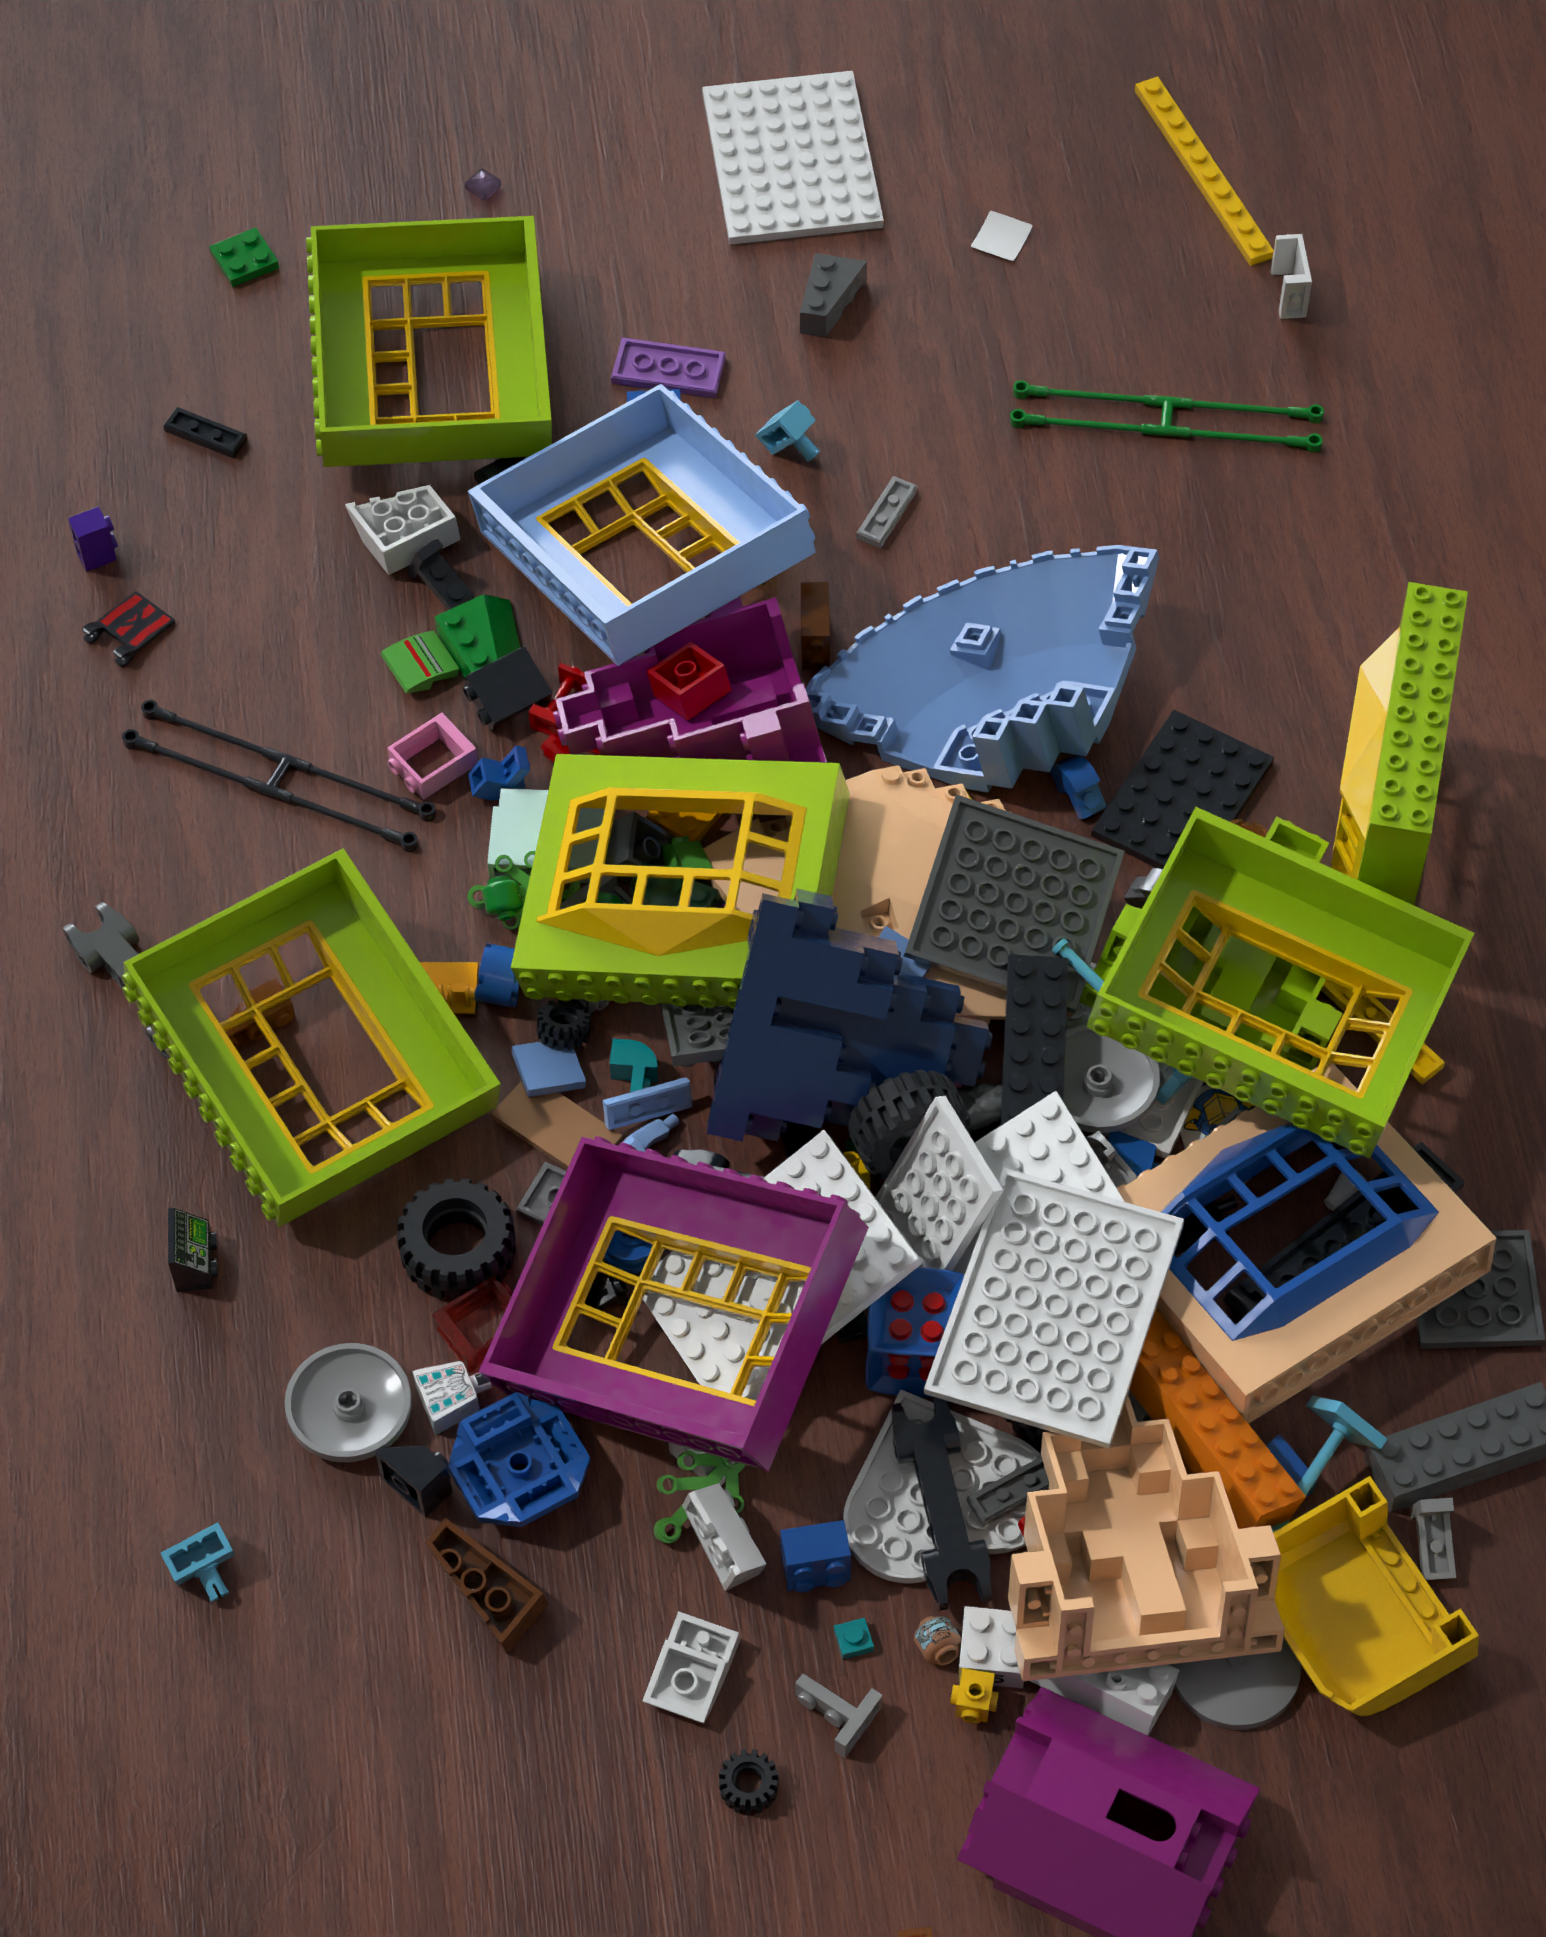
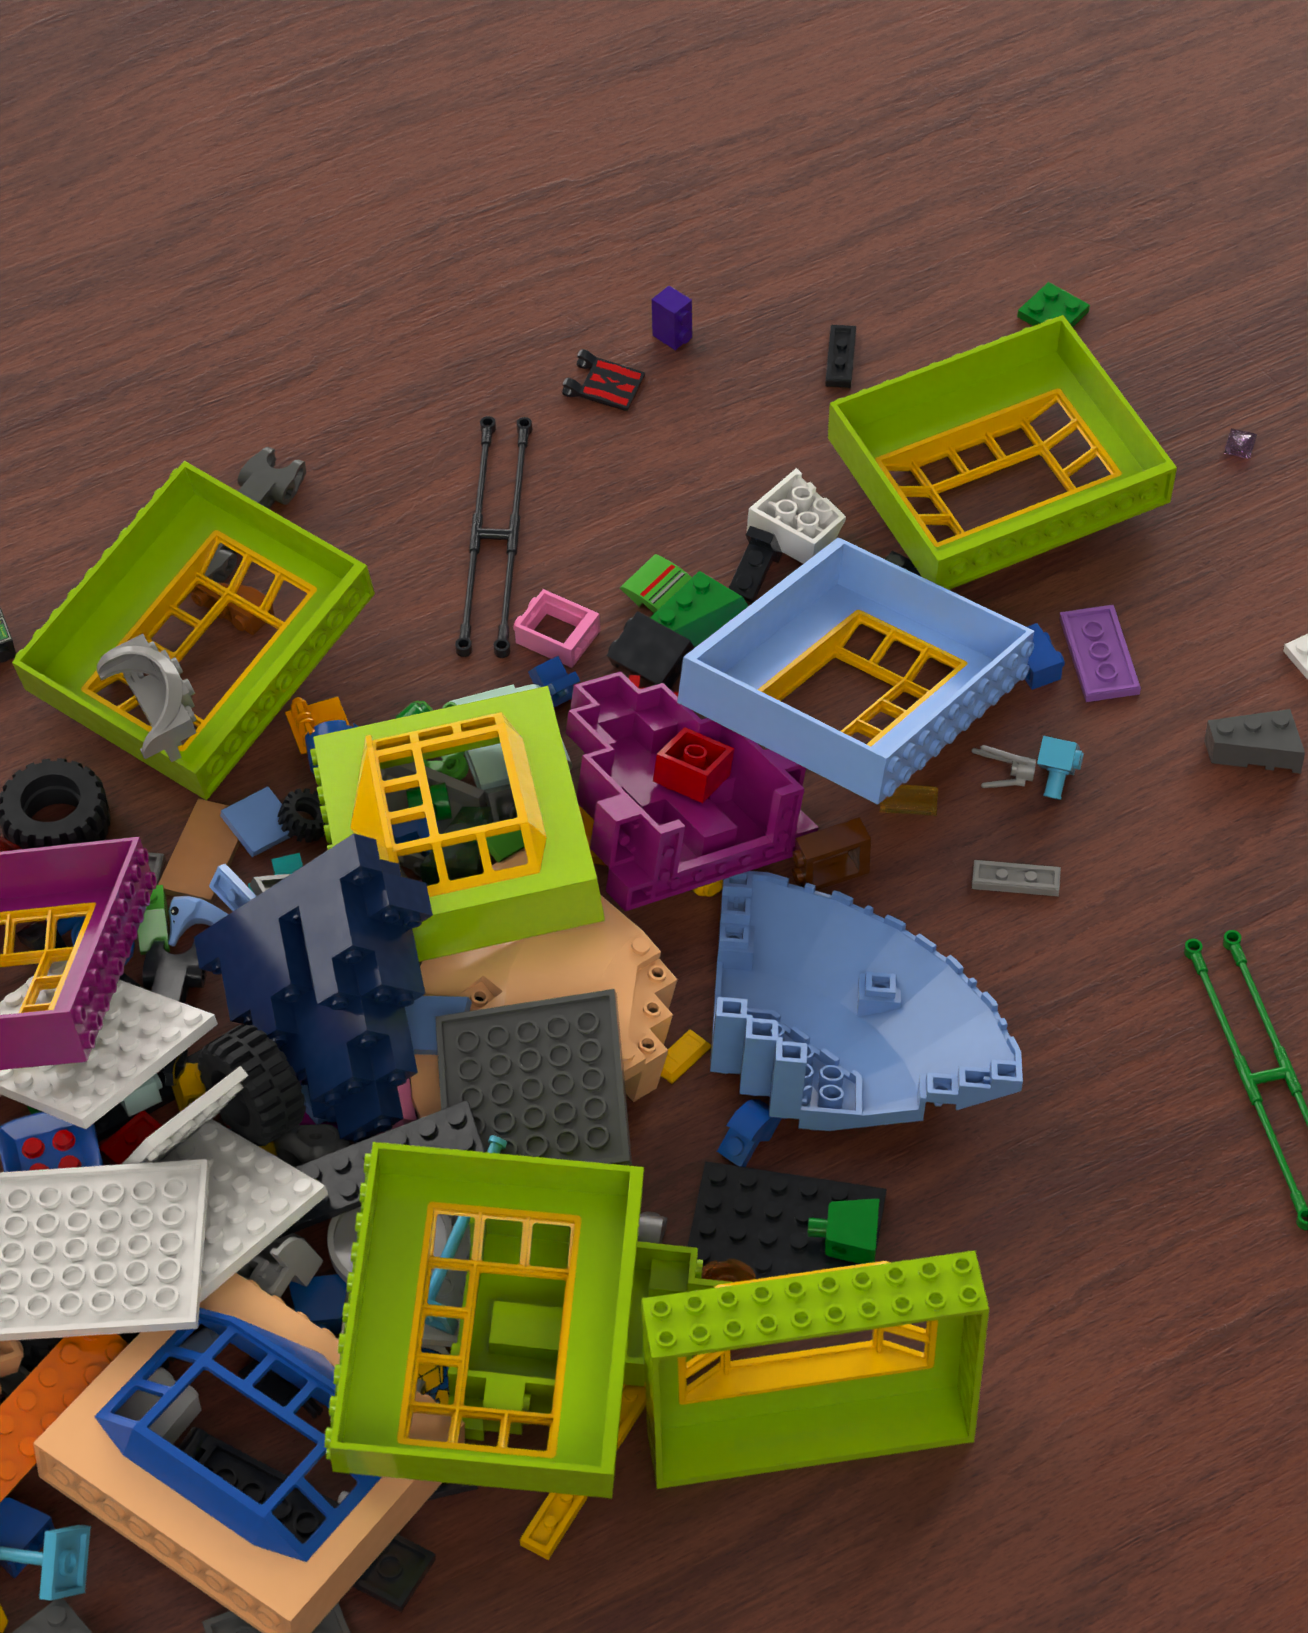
camera: 70 degrees right, 5 degrees down
(415, 1072) = (160, 694): none -> light grey piece
(775, 465) = (1021, 766): none -> light grey plant
(1219, 740) = (849, 1230): none -> green torso

